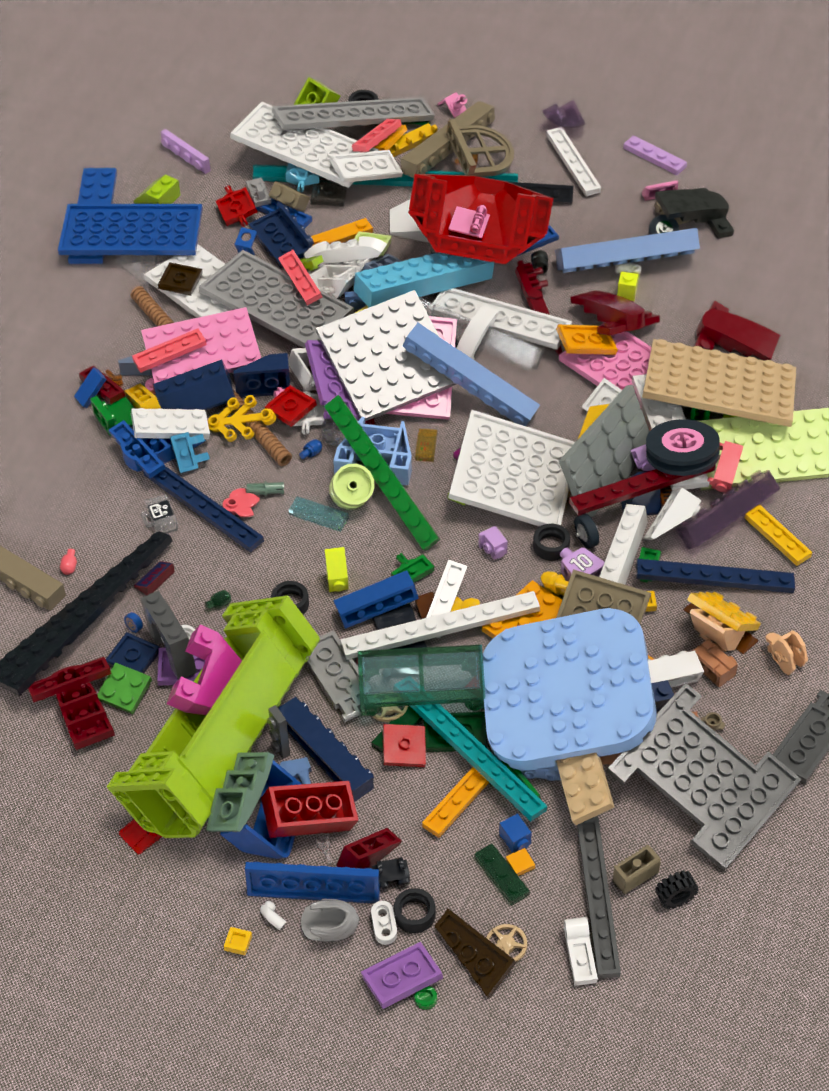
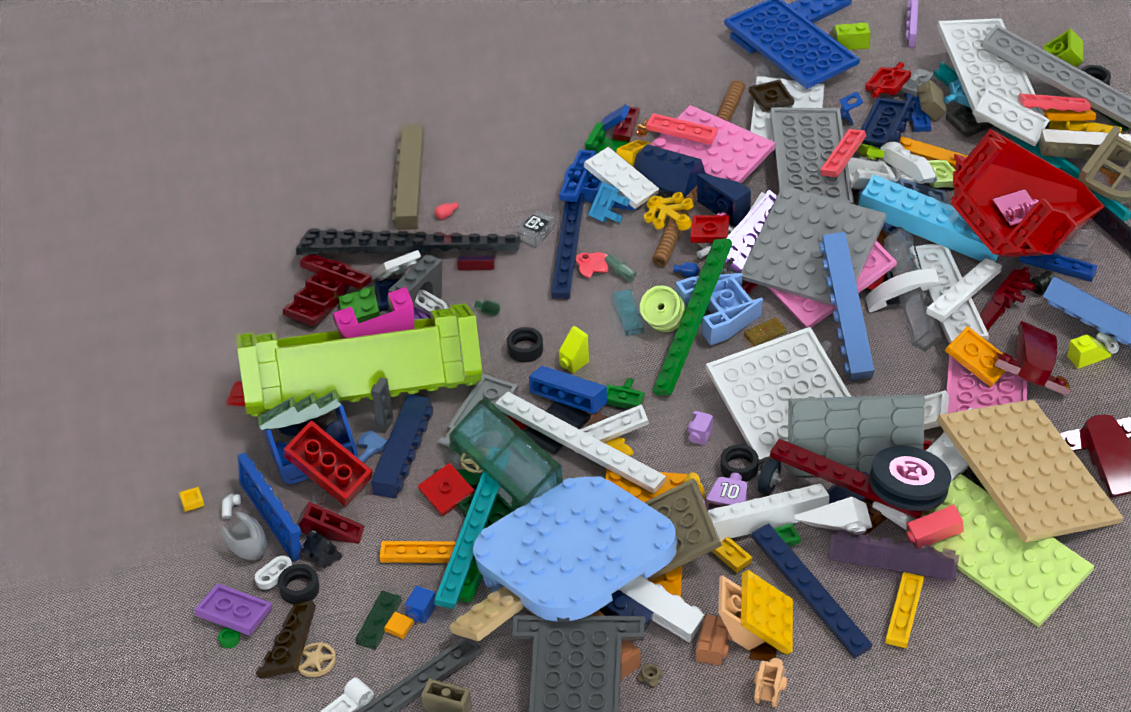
camera: 55 degrees right, 5 degrees down
(120, 629) = (395, 266): none -> white plate
(512, 305) = (964, 289): none -> white plate

